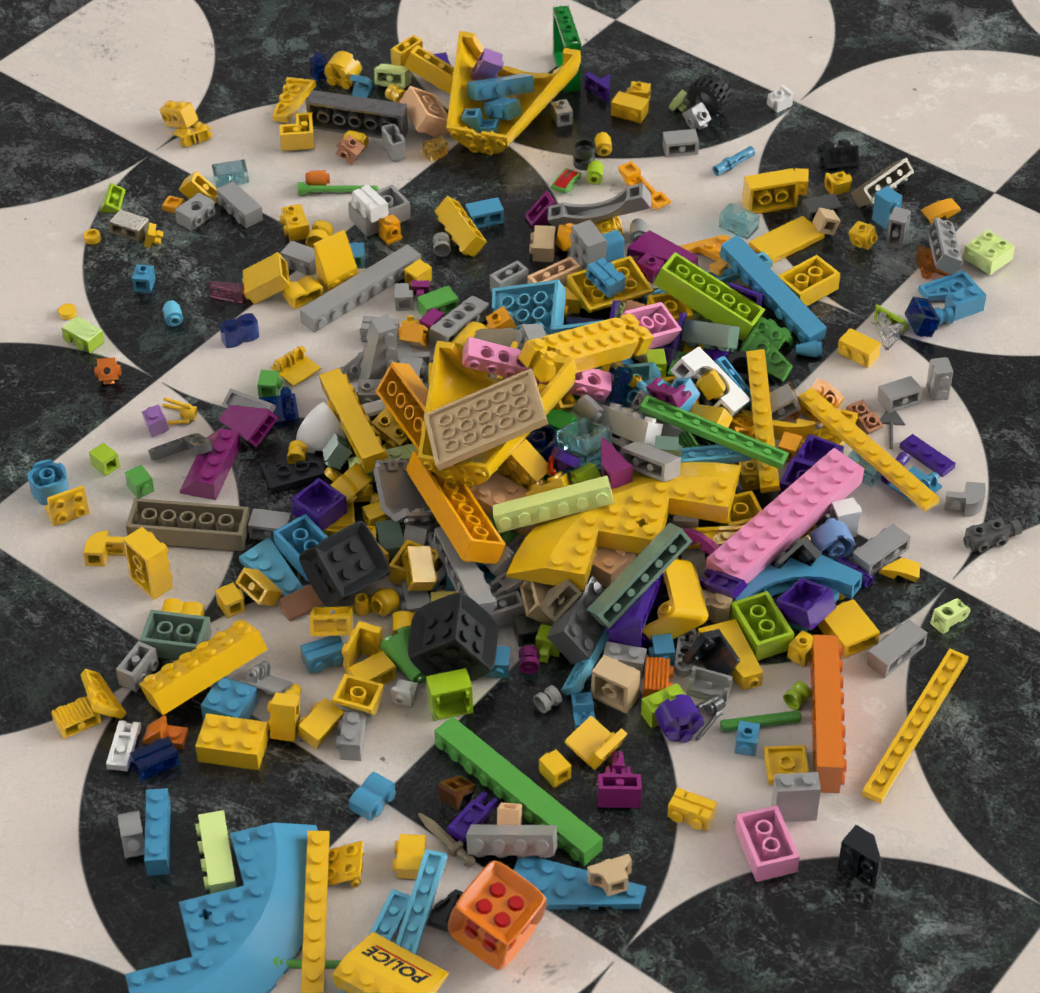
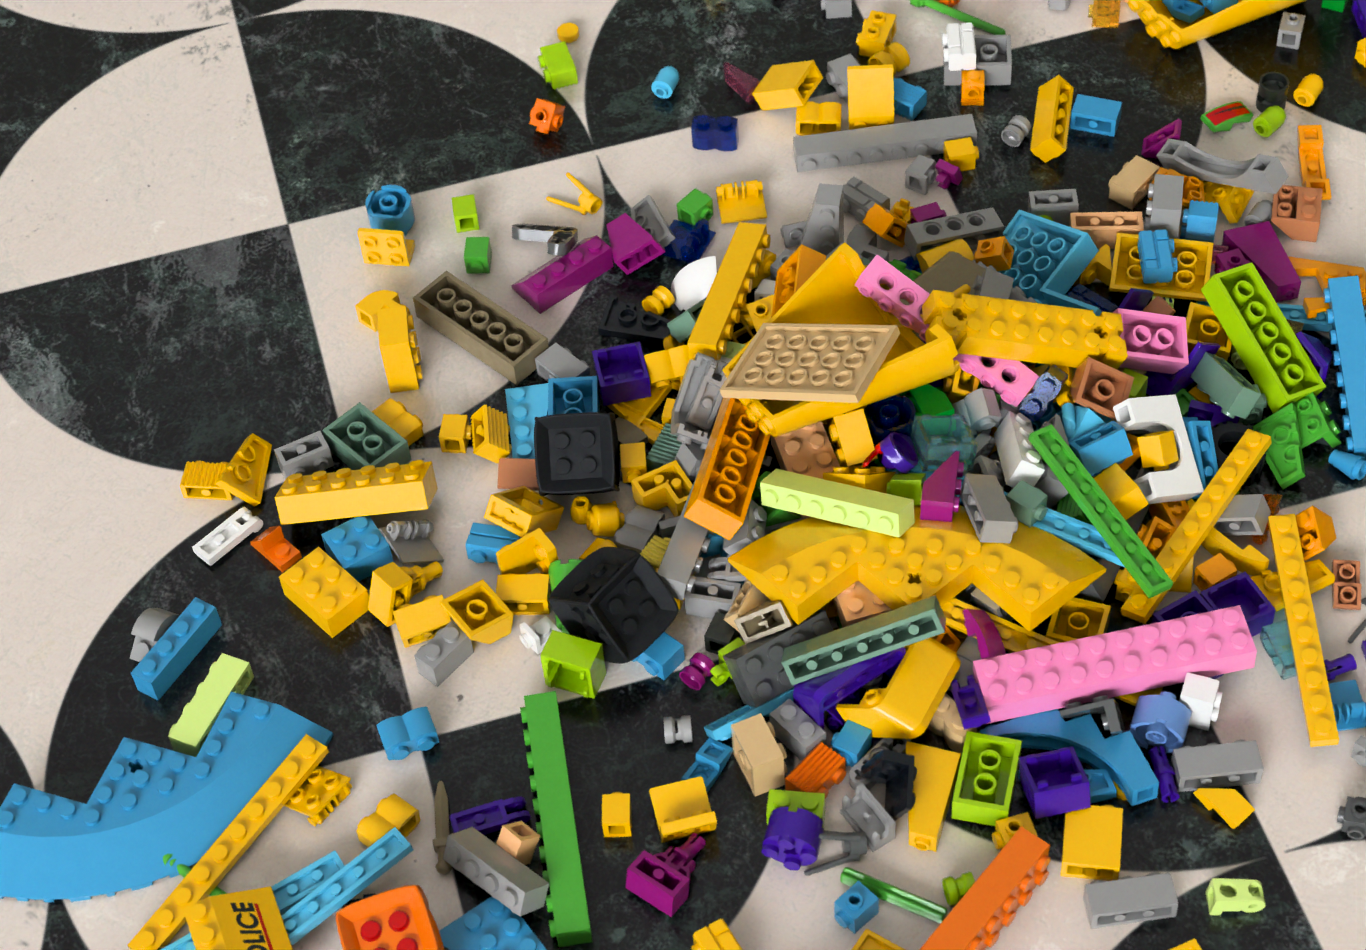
camera: 40 degrees right, 5 degrees up
(143, 278) = (669, 29): dark azure brick -> none
(154, 758) = (241, 567): clear blue brick -> none
(155, 420) = (545, 194): medium lavender brick -> none
(402, 485) = (707, 399): none -> light grey hinge
(419, 568) = (653, 501): yellow brick -> none
(441, 300) = (953, 196): bright green brick -> none
(454, 789) = (494, 775): reddish brown slope -> none
(651, 362) = (1100, 387): none -> nougat slope
(662, 218) = (1297, 212): none -> nougat slope
(668, 394) = (1082, 434): magenta hinge -> none

